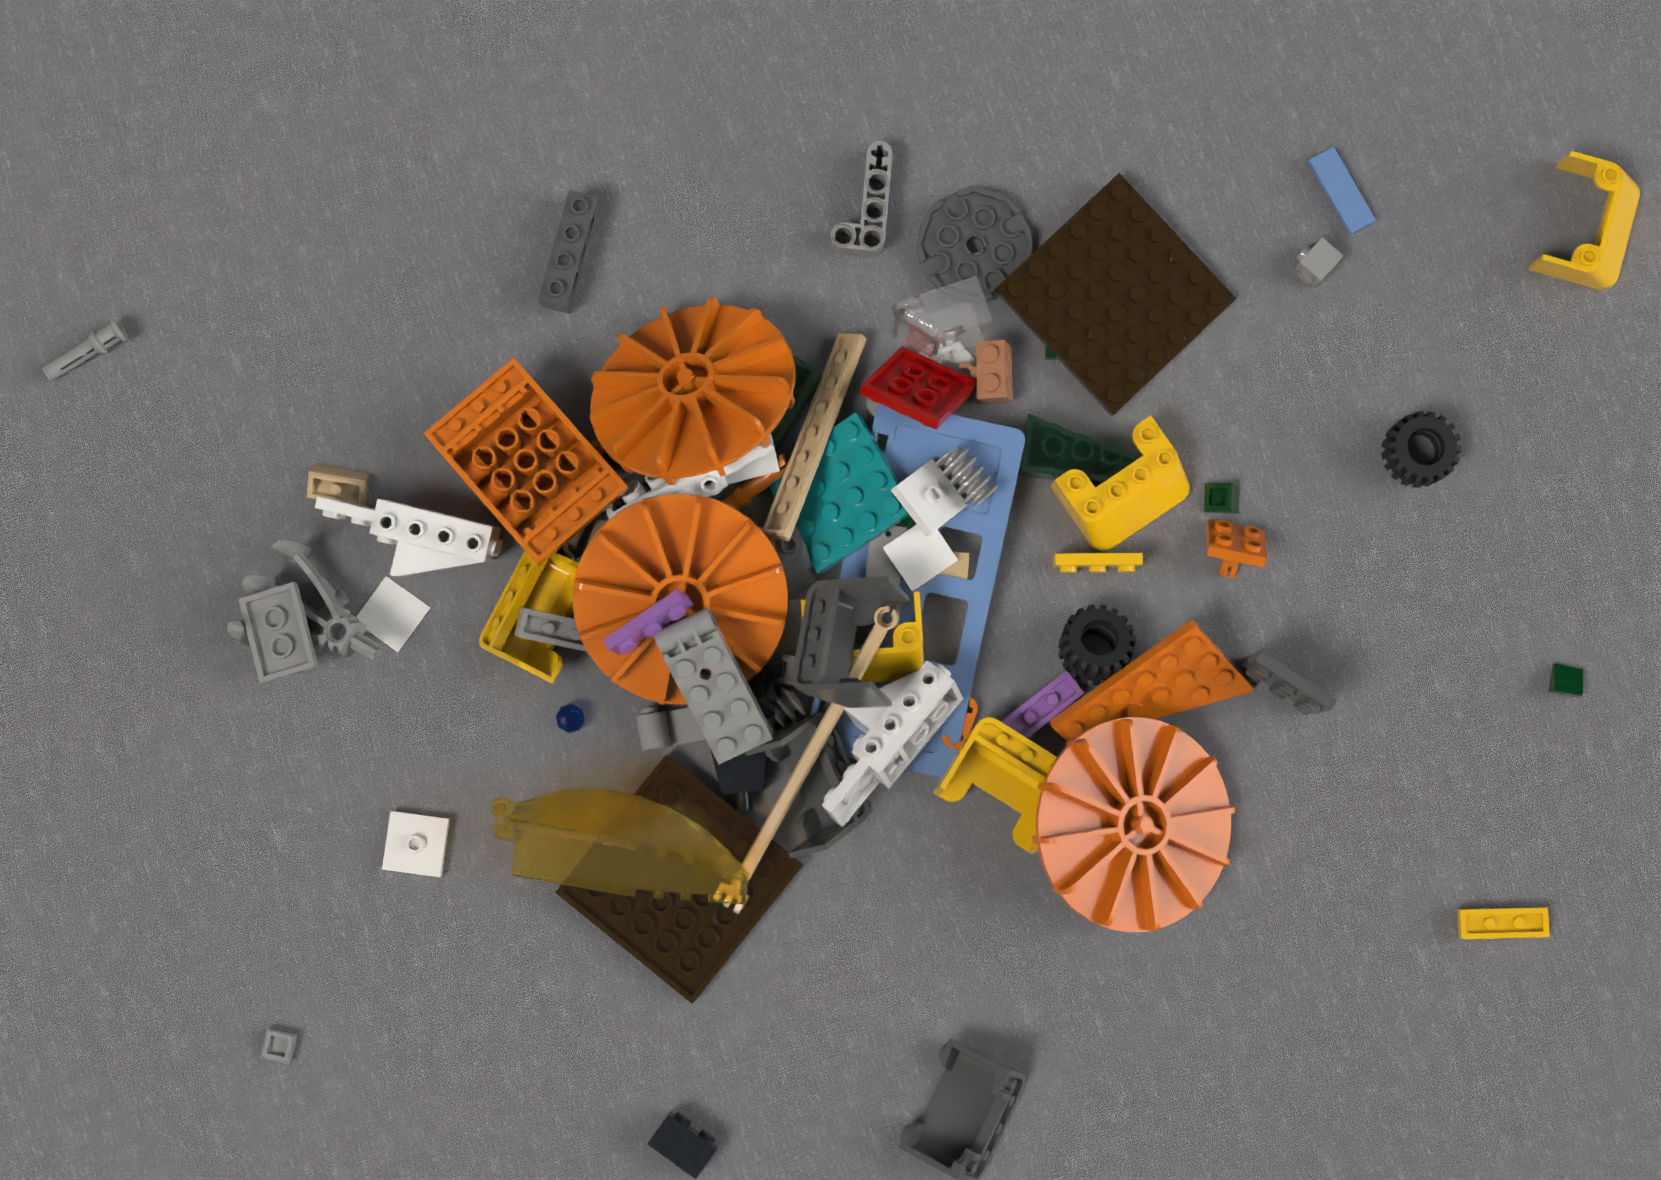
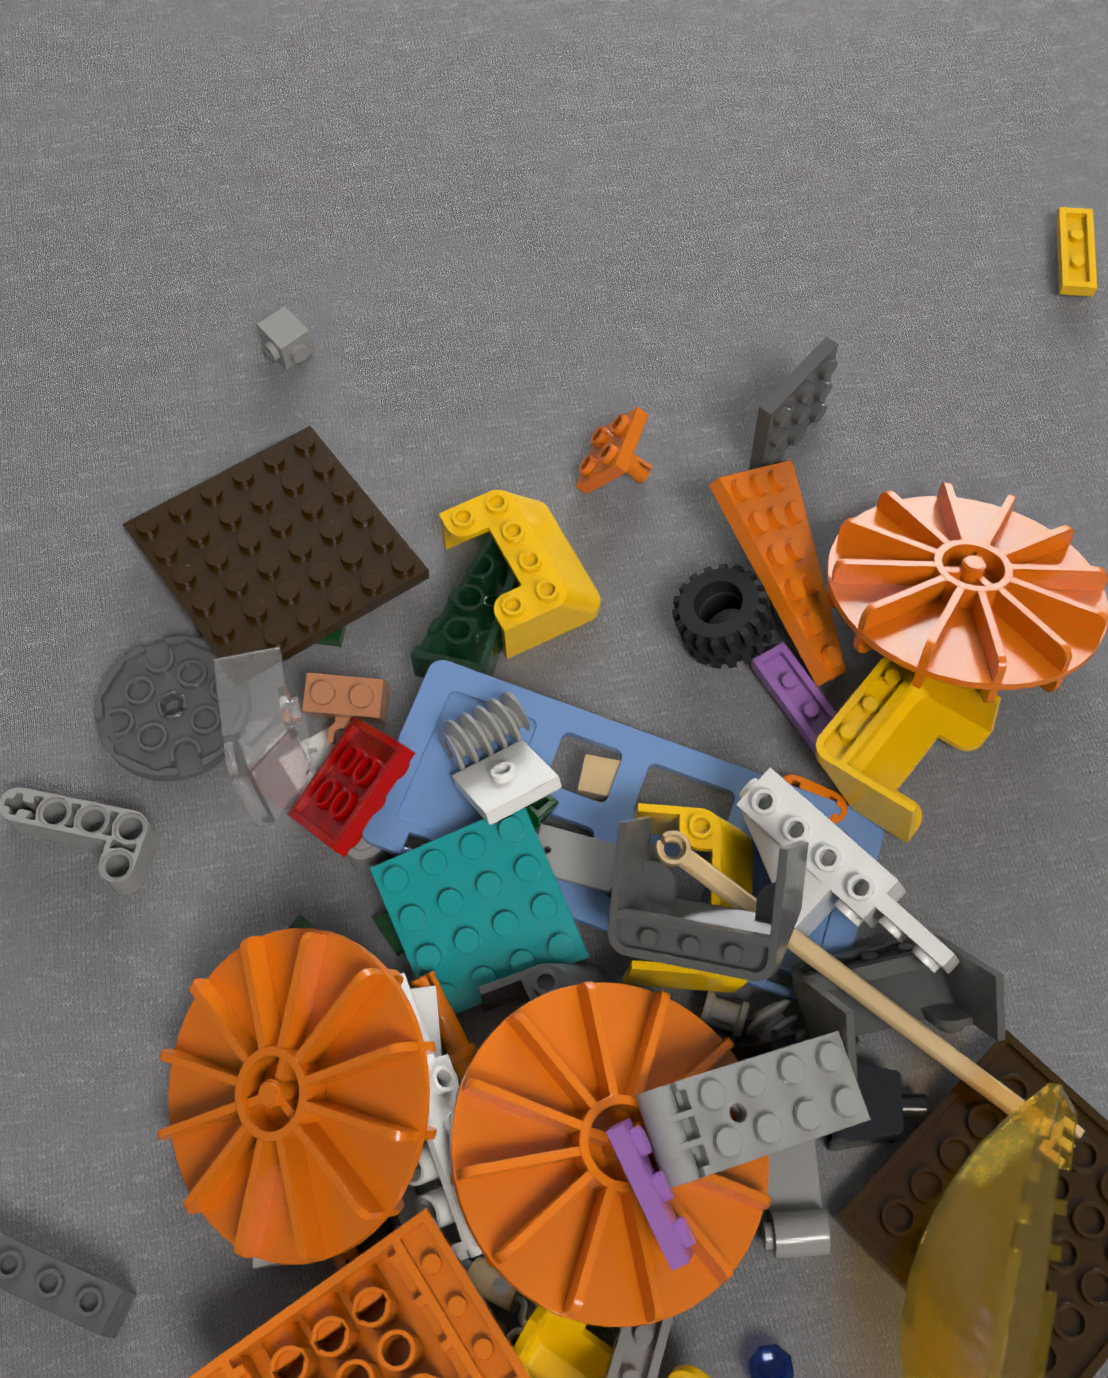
camera: 75 degrees left, 20 degrees down
(813, 436) = (397, 934): tan tile -> none
(919, 556) = (581, 811): white sticker -> none
(1097, 562) = (615, 610): yellow plate -> none
(1221, 498) = (550, 471): dark green slope -> none
(1341, 191) = (207, 311): medium blue tile -> none
(1440, 436) = (525, 242): black tyre -> none
(1566, 681) = (803, 169): dark green slope -> none
(1601, 263) = (261, 63): yellow windscreen -> none

